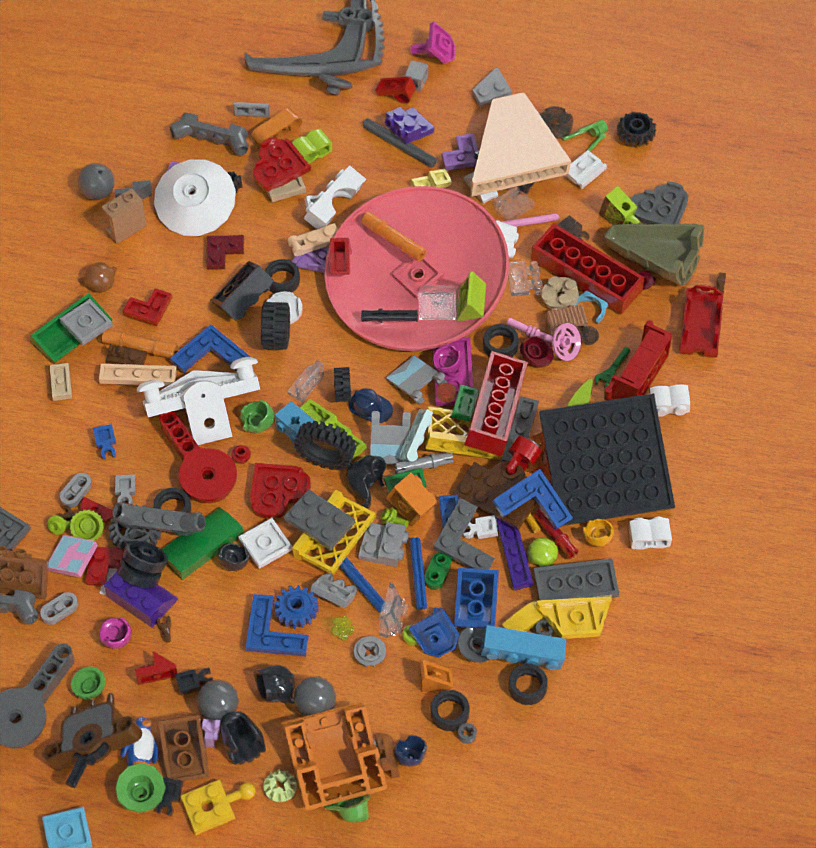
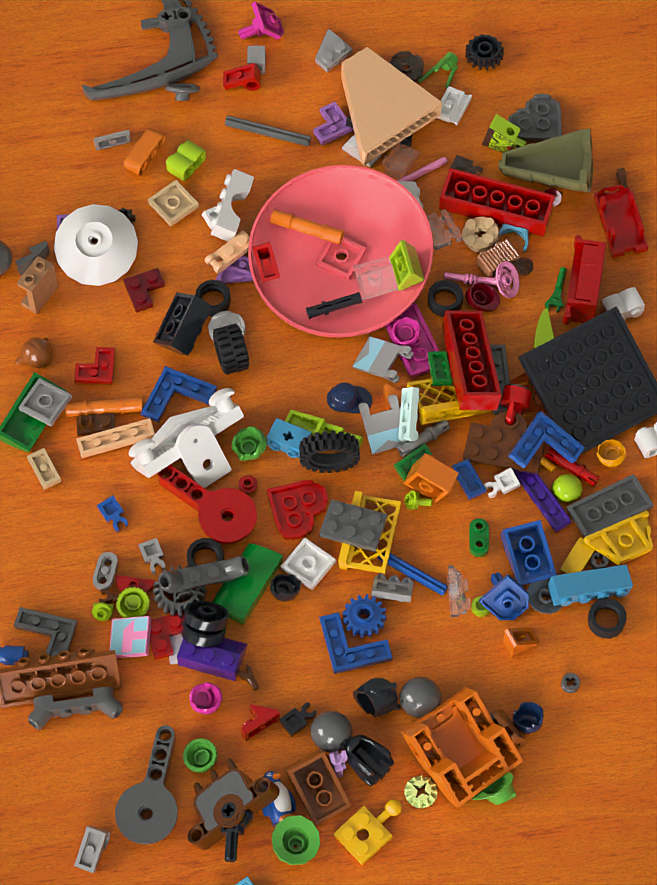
camera: 20 degrees left, 5 degrees up
(58, 608) = (139, 693): light grey plate -> none
(171, 794) = (325, 835): black plate -> none
(233, 137) = (59, 174): dark grey plate -> none
(279, 164) = (164, 187): red plate -> none
(307, 381) = (280, 394): clear bracket -> none
(342, 384) = (317, 386): black tyre -> none
(342, 627) = (415, 621): clear neon green plant -> none
(363, 474) = (372, 467): black piece -> none
(370, 643) = (446, 627): light grey gear -> none
(384, 544) = (419, 528): light grey plate -> none
(408, 124) = (269, 110): dark purple plate -> none
(418, 573) = (462, 546): blue axle -> none
(435, 178) = (316, 159): light yellow slope -> none
(446, 392) = (417, 363): clear orange tile -> none
(449, 695) = (547, 652): black tyre -> none
(450, 540) = (479, 500): dark grey plate -> none

